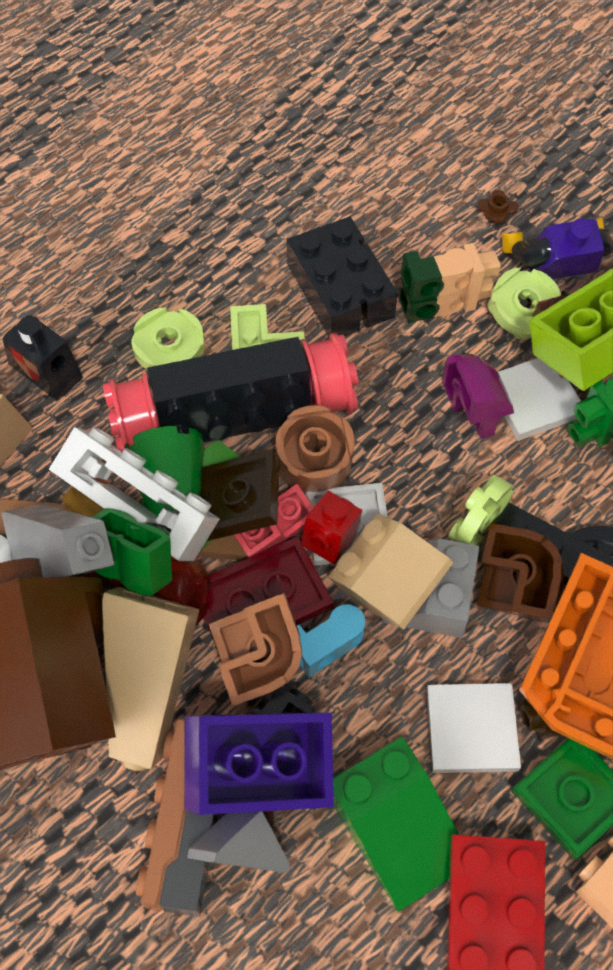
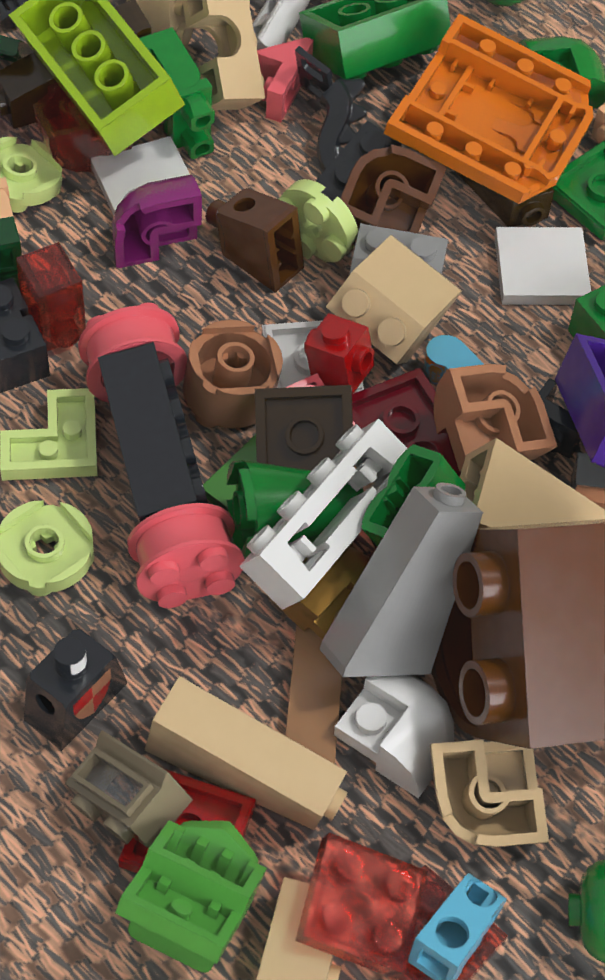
camera: 95 degrees left, 5 degrees down
(382, 321) = (53, 295): none -> clear red brick
(472, 457) = (259, 236): none -> reddish brown torso

